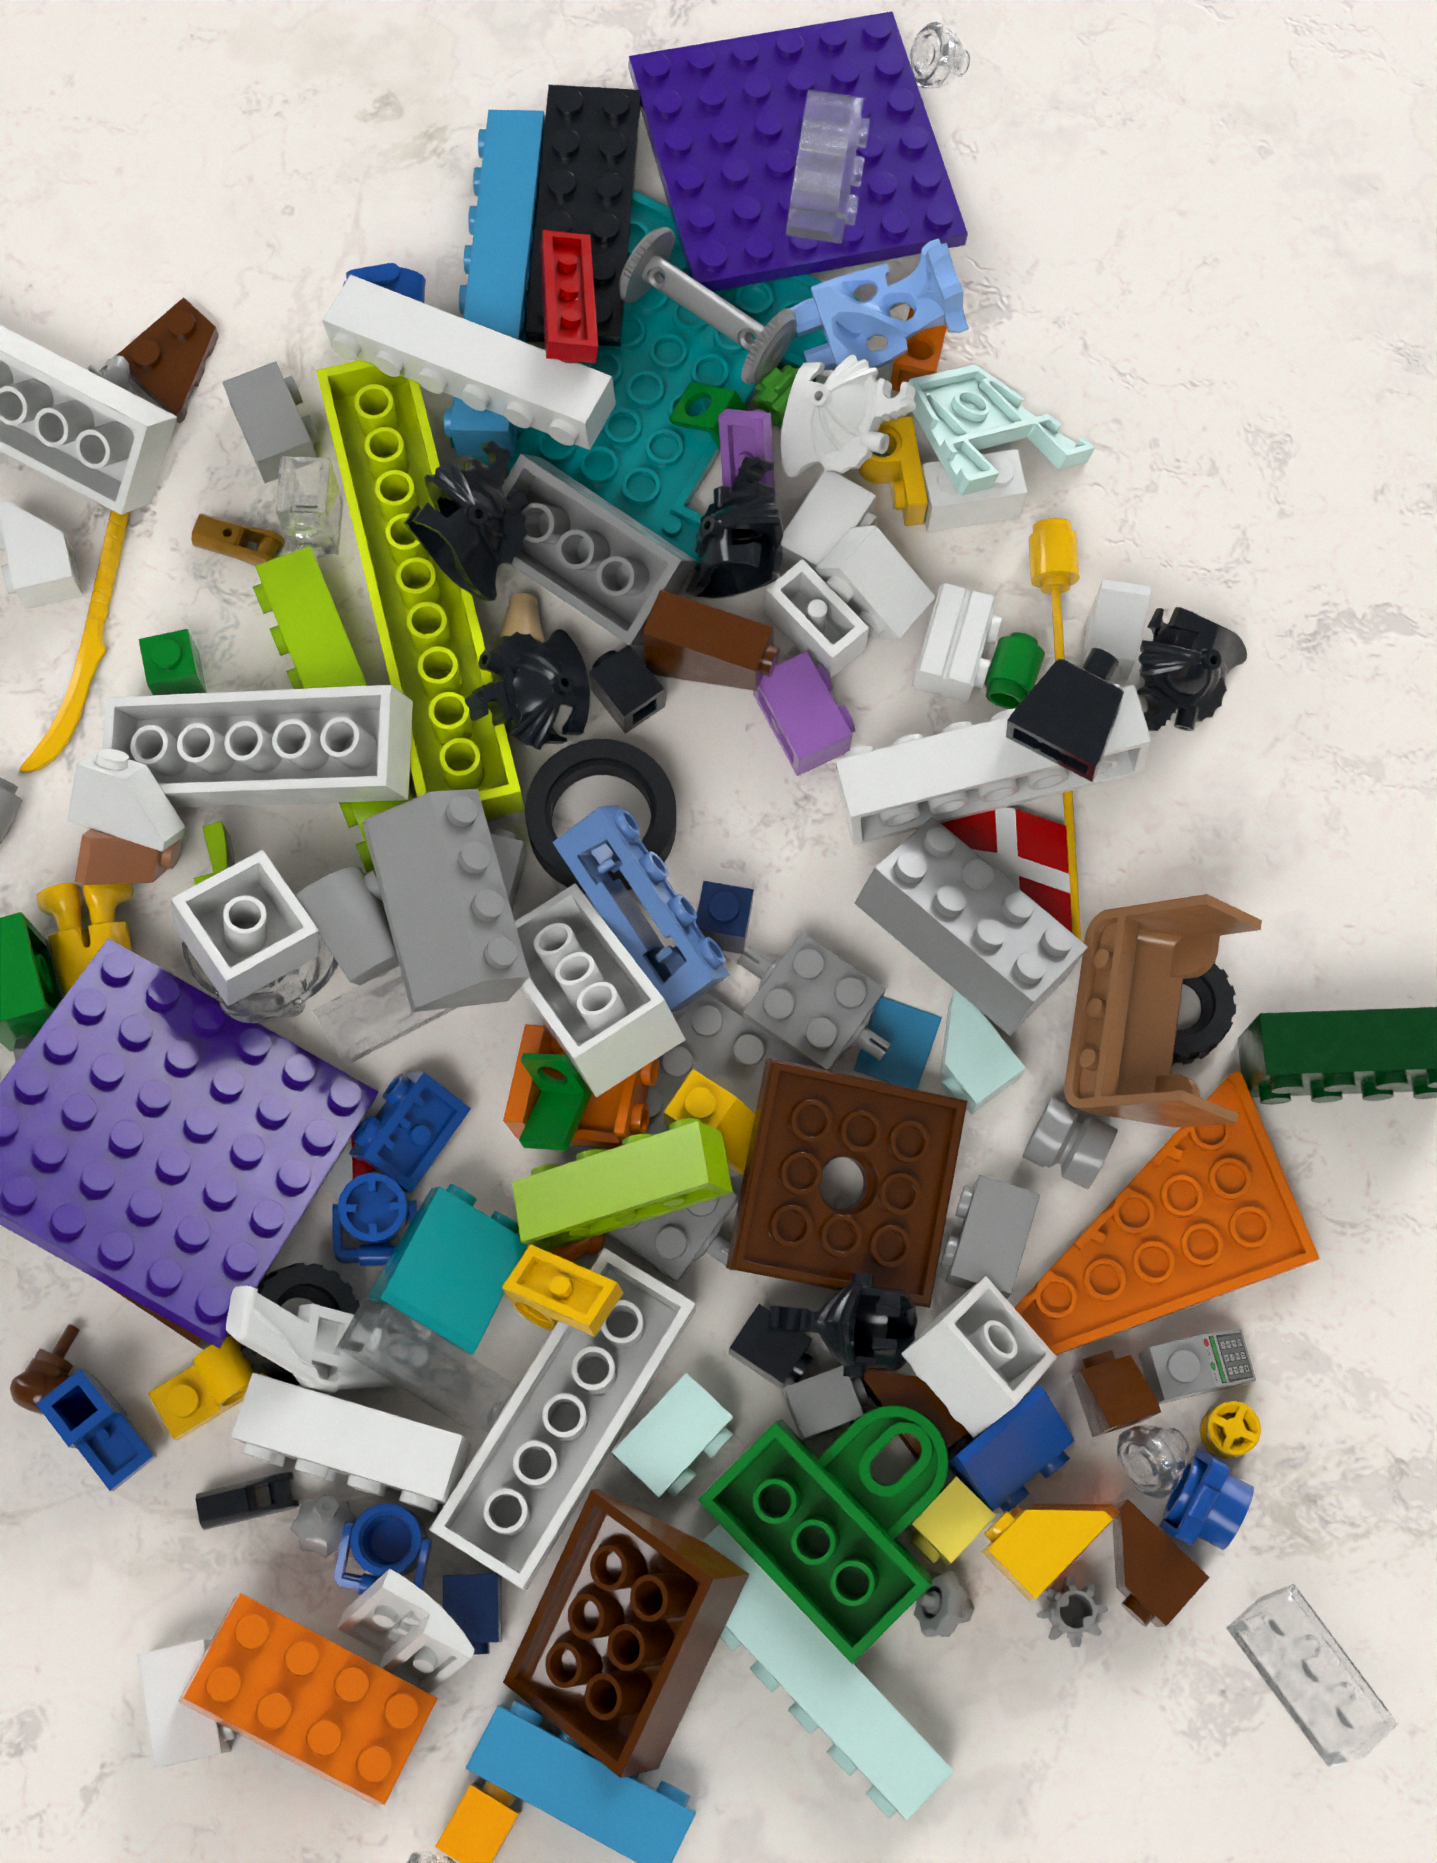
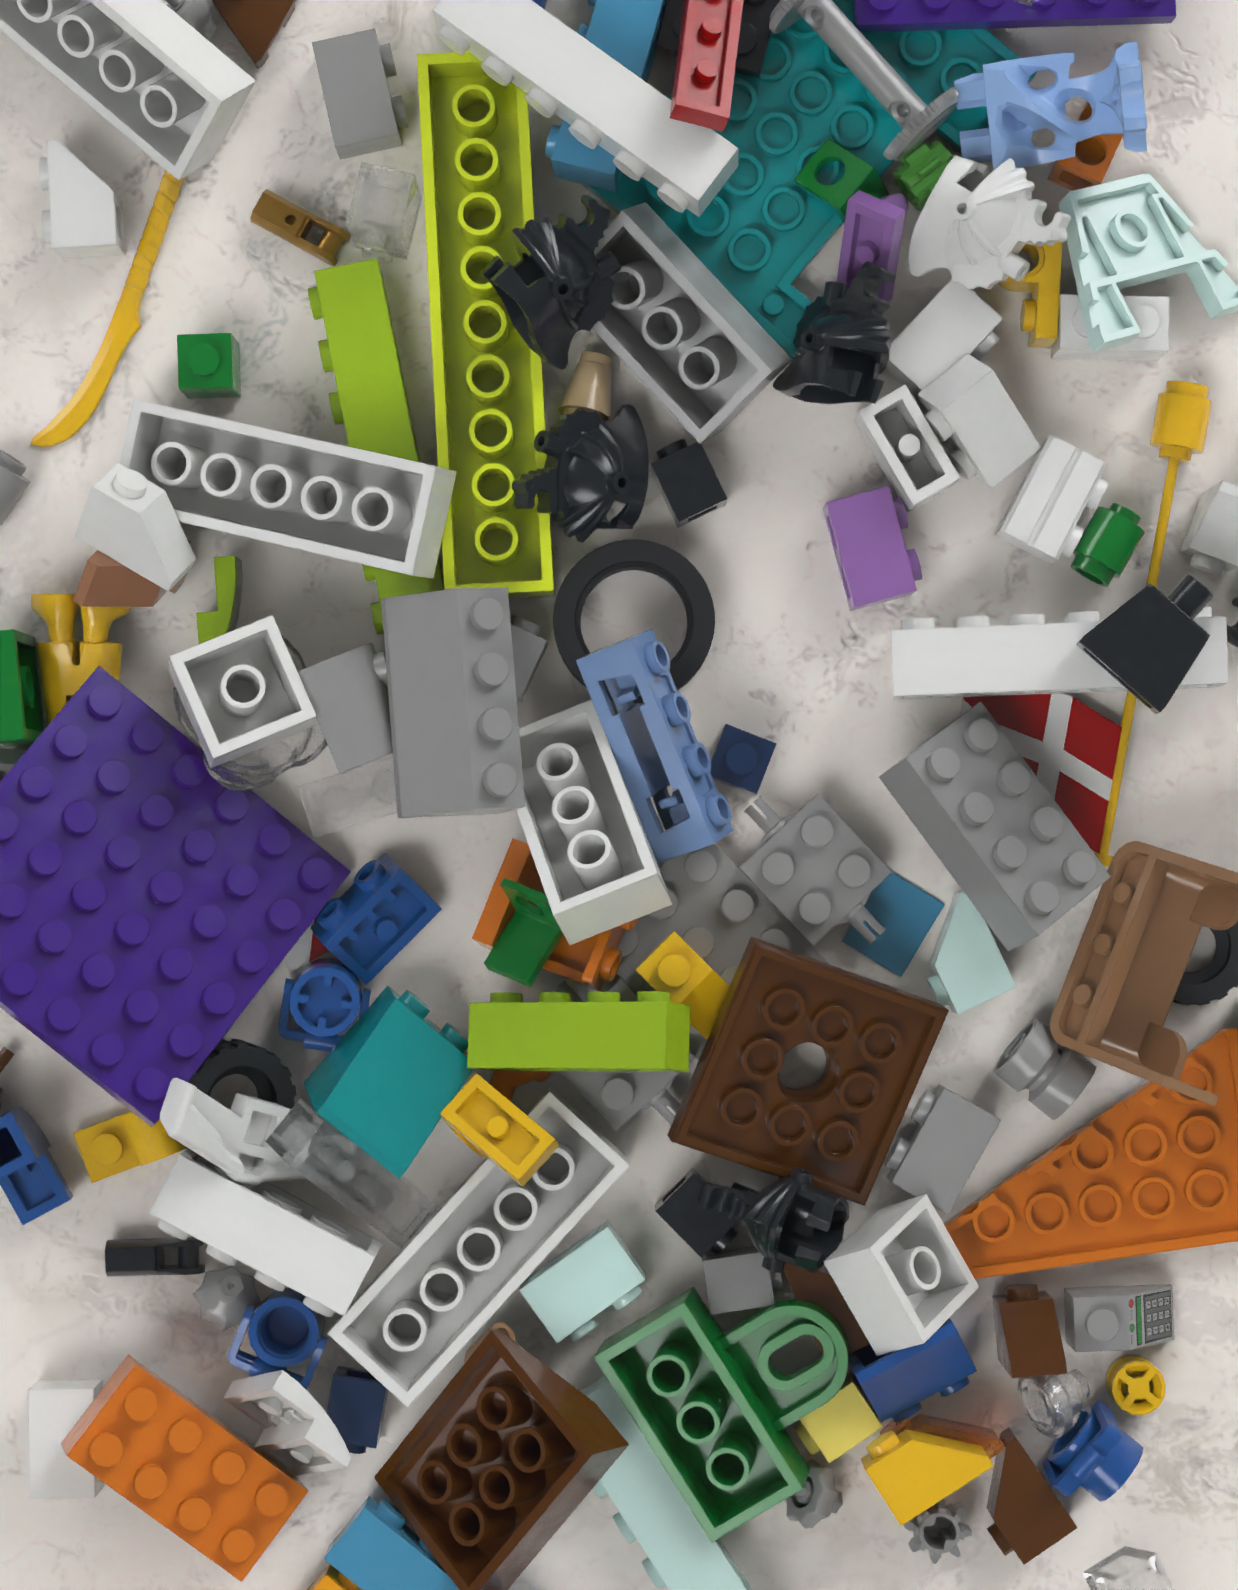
camera: 15 degrees right, 15 degrees up
(707, 644) = (785, 462): reddish brown slope -> none

